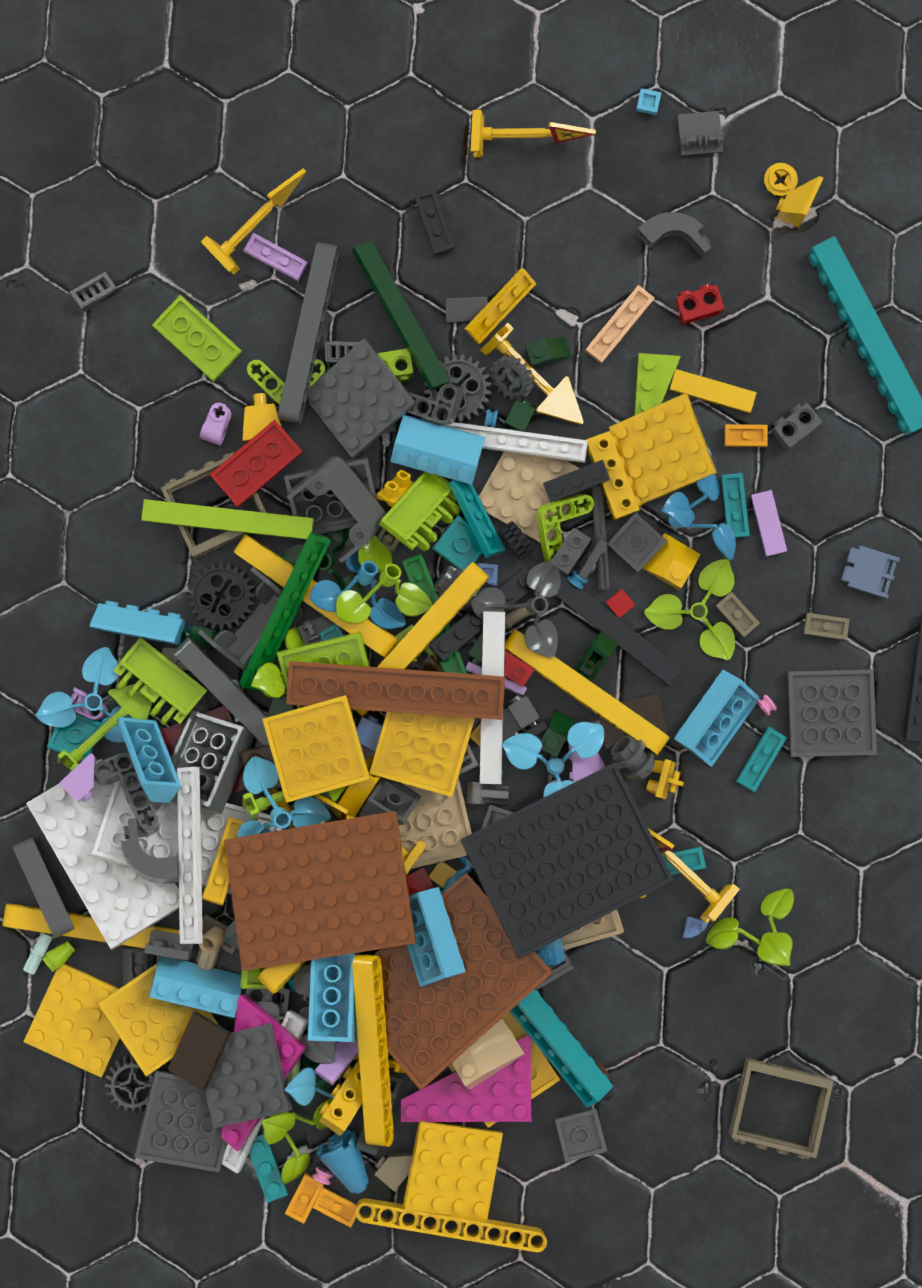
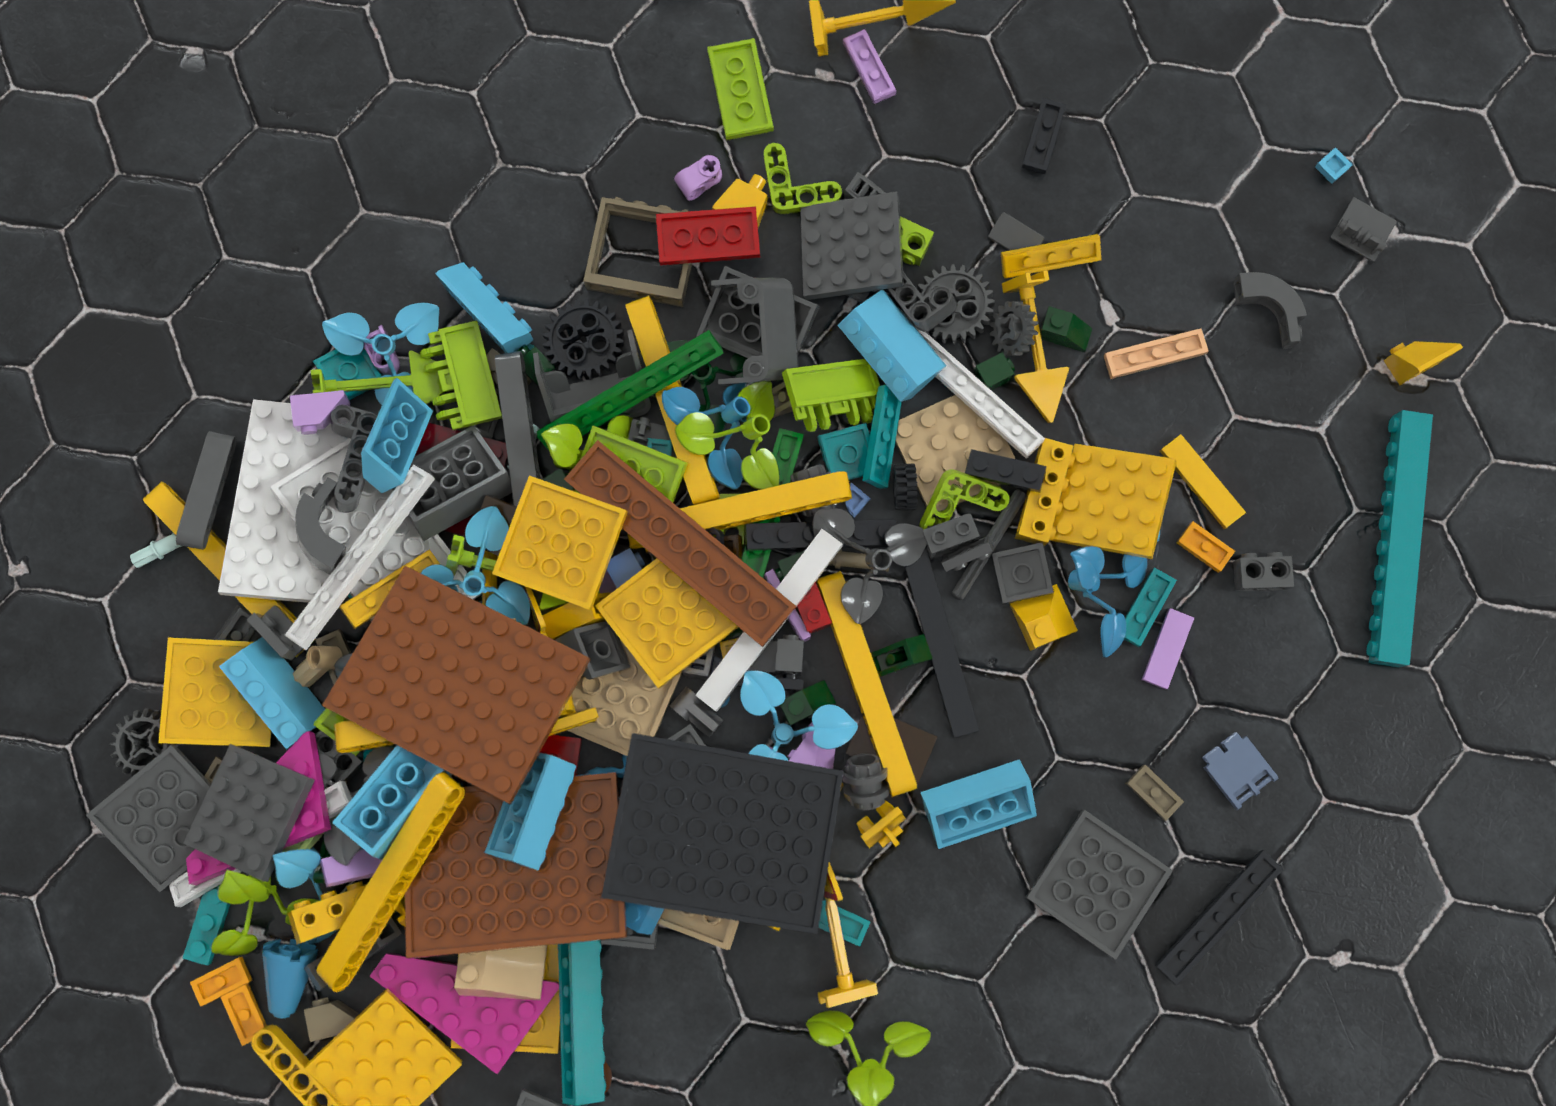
camera: 35 degrees right, 5 degrees down
(58, 956) = (172, 567): lime cone -> none
(72, 1023) = (133, 639): yellow plate -> none
(199, 1051) = (226, 756): dark brown tile -> none
(227, 519) = (640, 268): lime tile -> none
(308, 333) = (847, 153): dark grey beam -> none
(322, 1175) = (254, 972): bright pink bush -> none
(396, 488) = (821, 353): yellow hips -> none
(401, 315) = (948, 197): dark green tile -> none
(441, 873) = (595, 757): yellow tile -> none
(491, 418) = (965, 354): dark azure bush -> none
(558, 131) = (1228, 131): yellow piece -> none
(577, 580) = (936, 567): dark azure bush -> none
(620, 603) = (963, 621): red tile -> none
(653, 379) = (1152, 428): lime wing -> none
(666, 610) = (1005, 660): lime plant -> none
(693, 927) = (804, 998): medium blue tile -> none
(701, 309) = (1247, 395): red brick -> none
(737, 614) = (1072, 715): dark tan plate -> none
(761, 759) = (994, 878): teal tile -> none
(766, 705) = (1038, 827): bright pink bush -> none
(780, 170) = (1419, 318): yellow gear -> none

